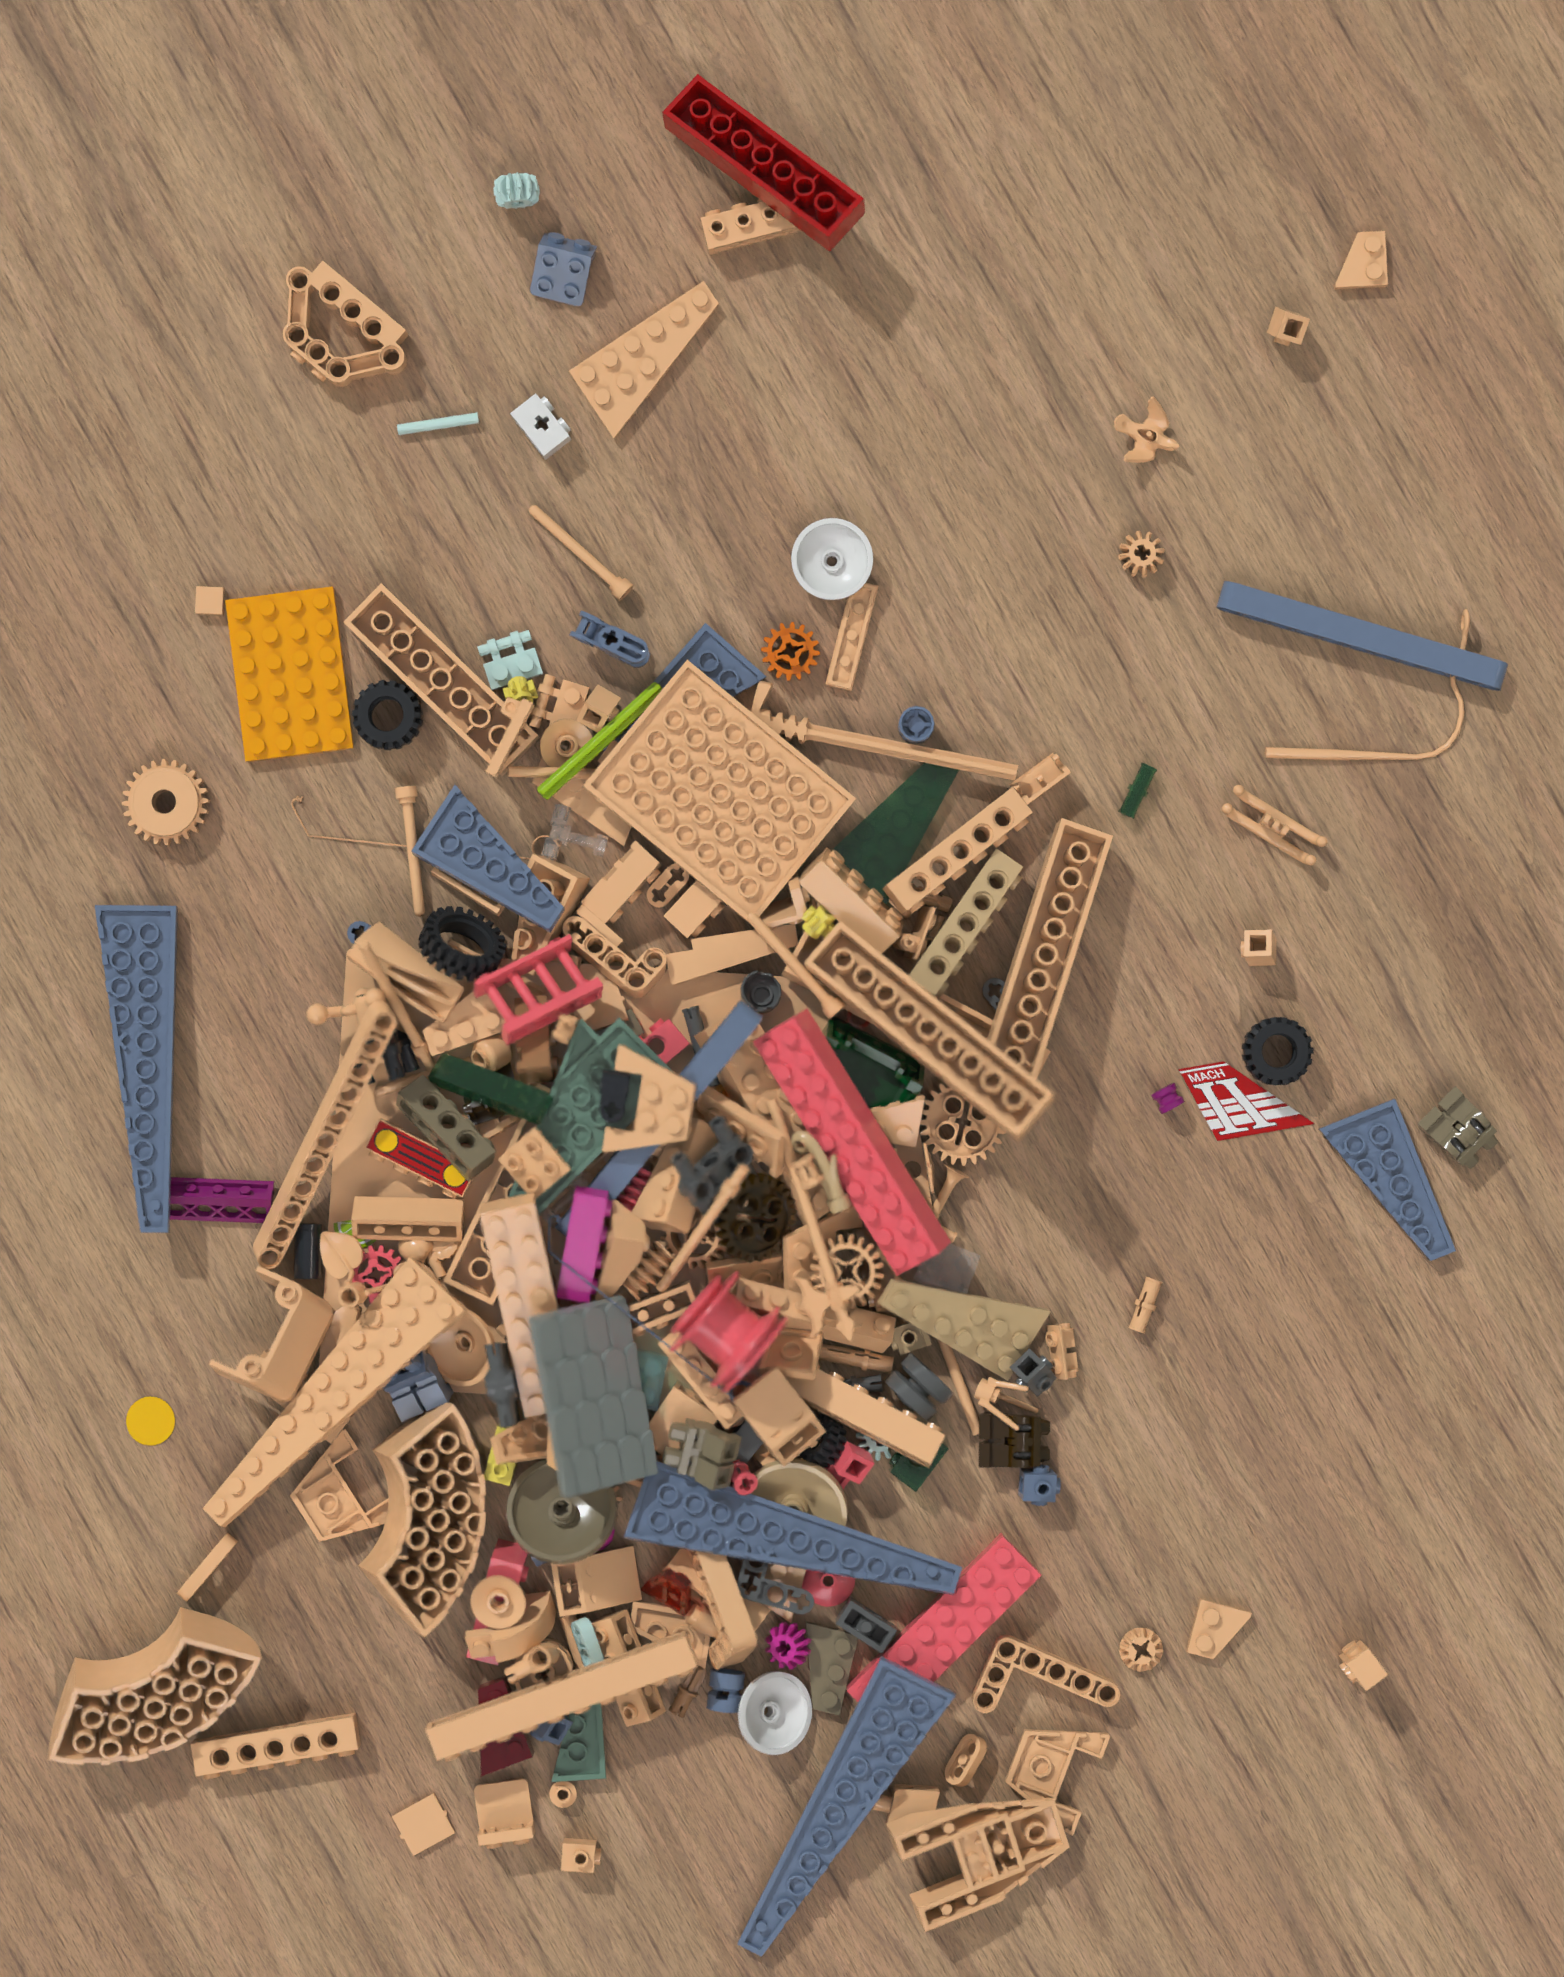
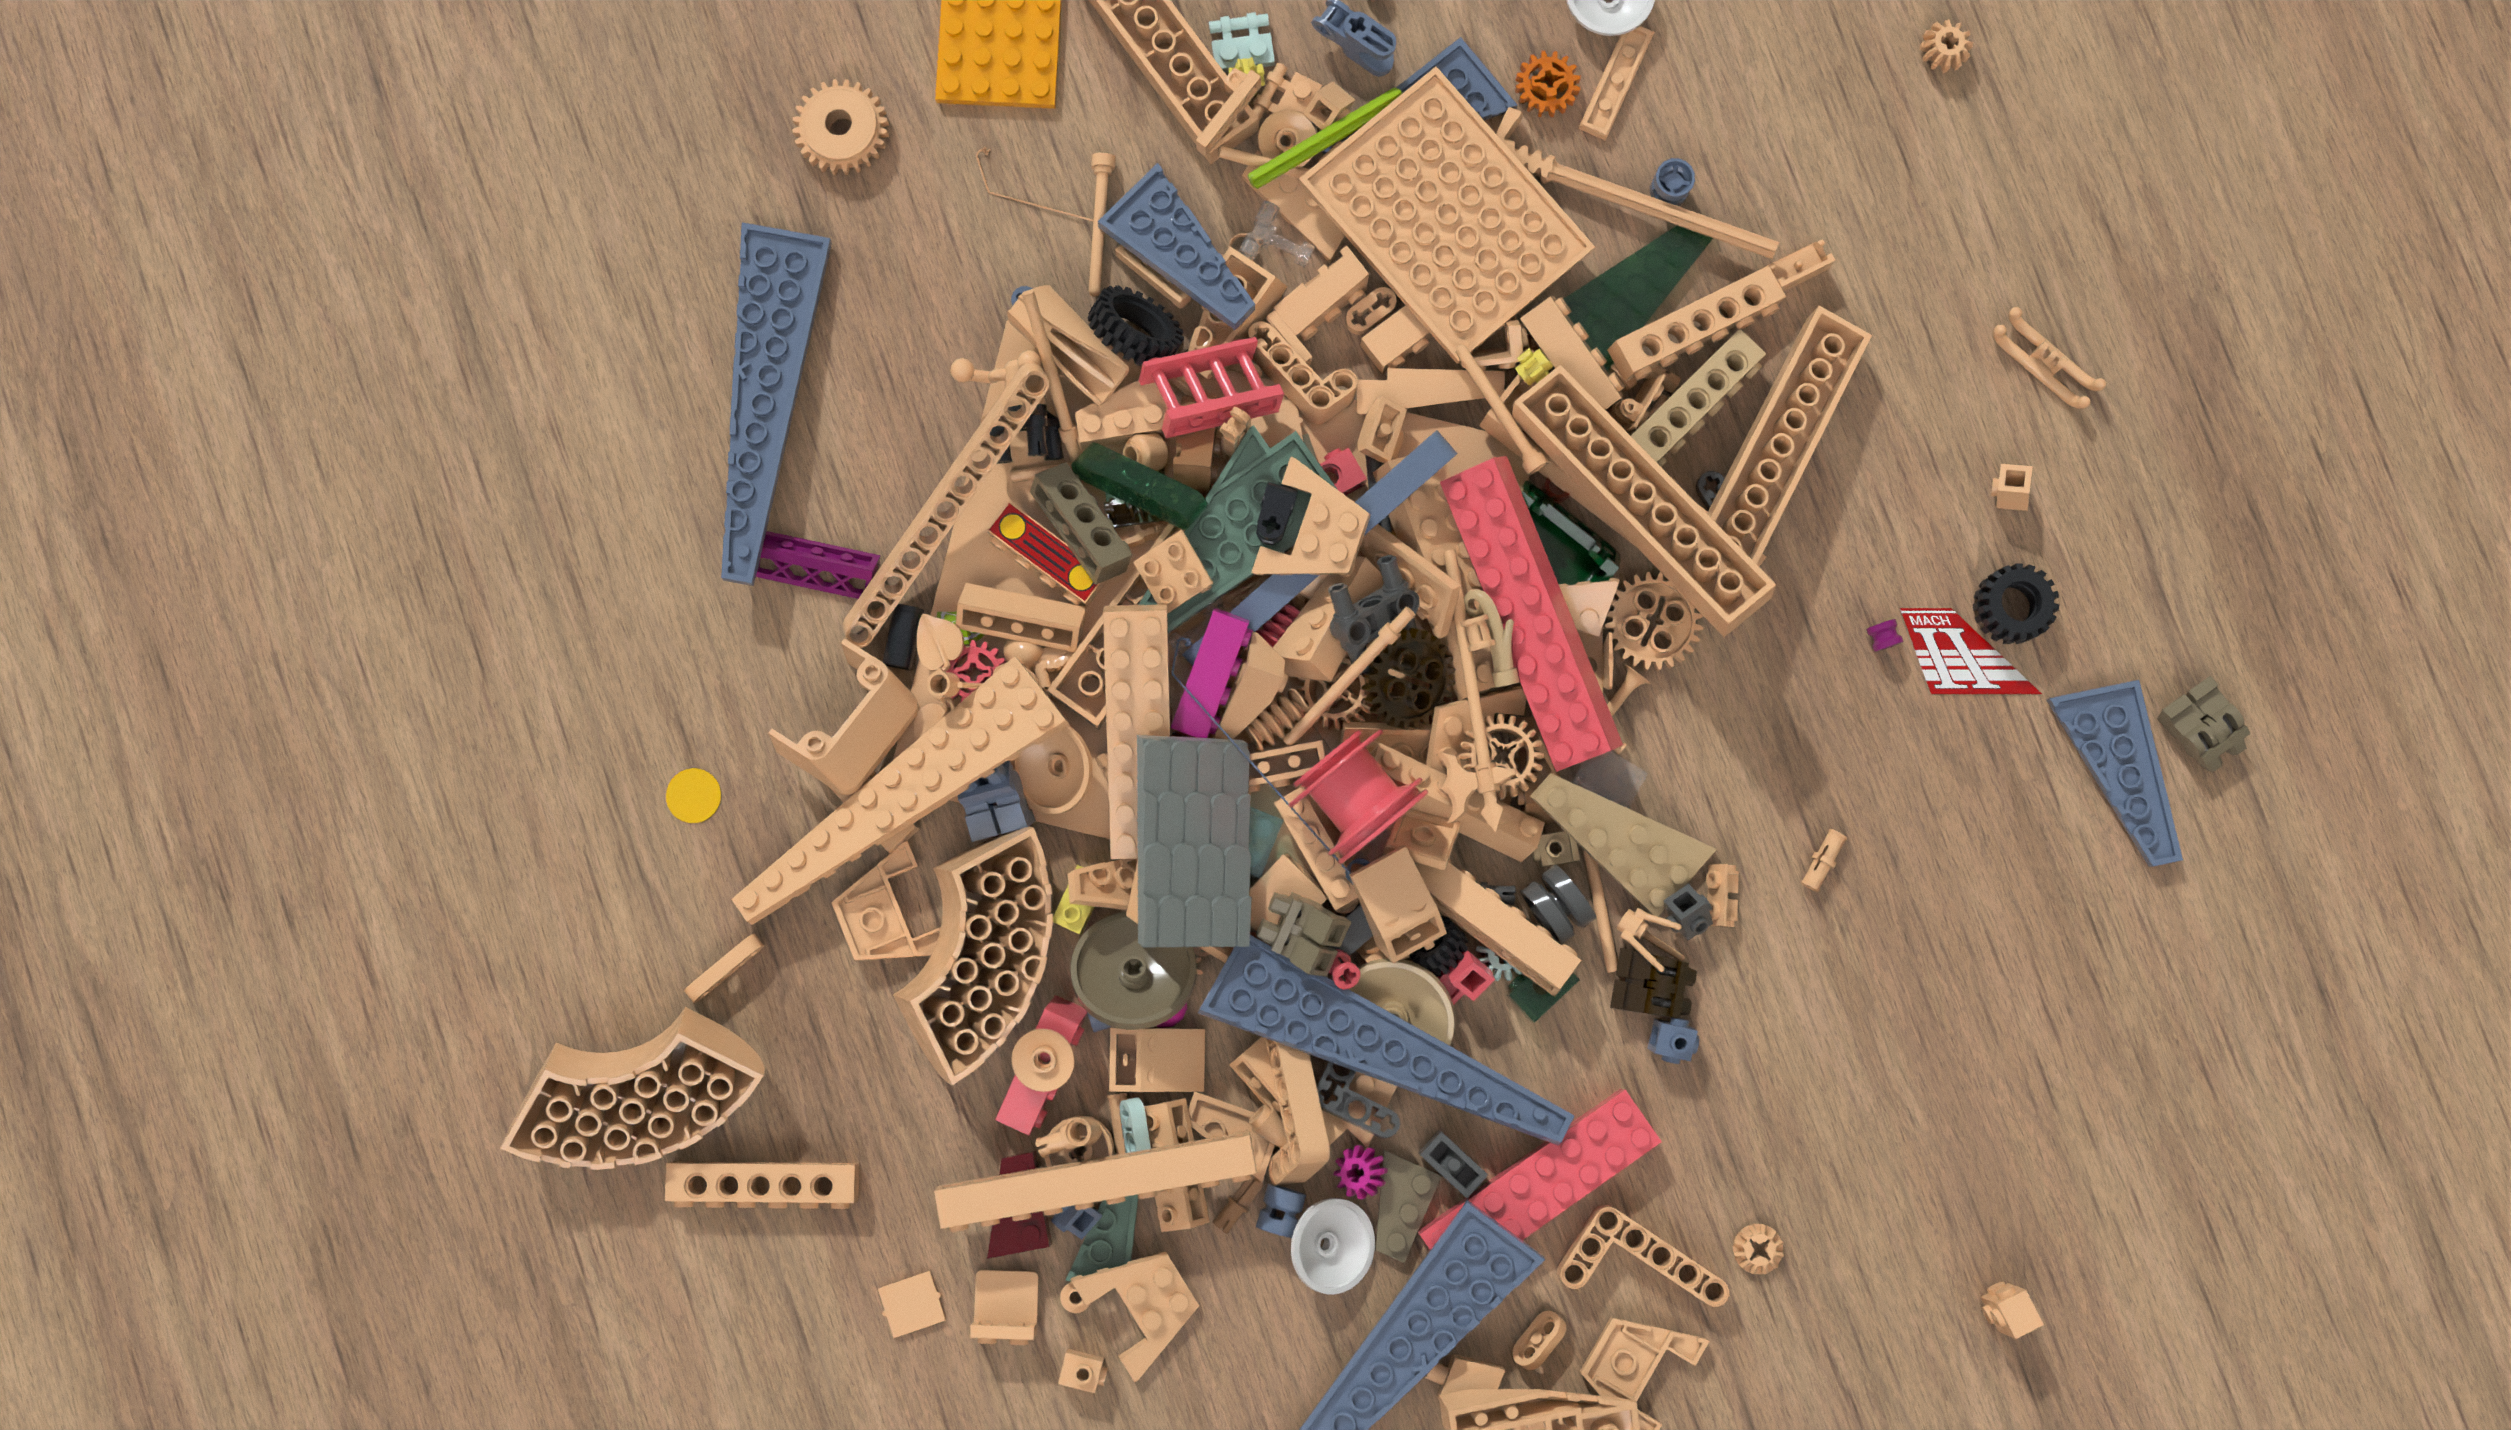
camera: 10 degrees right, 5 degrees down
(374, 695) = (1098, 51): black tyre -> none
(502, 1384) = (1092, 815): dark grey piece -> none
(519, 1638) = (1055, 1107): light nougat arch -> none
(630, 1782) = (1154, 1298): none -> light nougat wing
(670, 1589) = (1239, 1084): clear red wing -> none
(696, 998) = (1382, 430): none -> light nougat slope
(761, 991) = (1459, 435): dark grey hair -> none
(828, 1594) = (1417, 1124): coral dish -> none
(856, 1358) = (1492, 863): light nougat pin -> none
(1137, 790) = (1903, 297): clear green pin -> none
(1214, 1627) = (1845, 1239): light nougat wing -> none
(1335, 754) = (2134, 299): light nougat piece -> none
(1362, 635) = (2175, 174): sand blue beam -> none

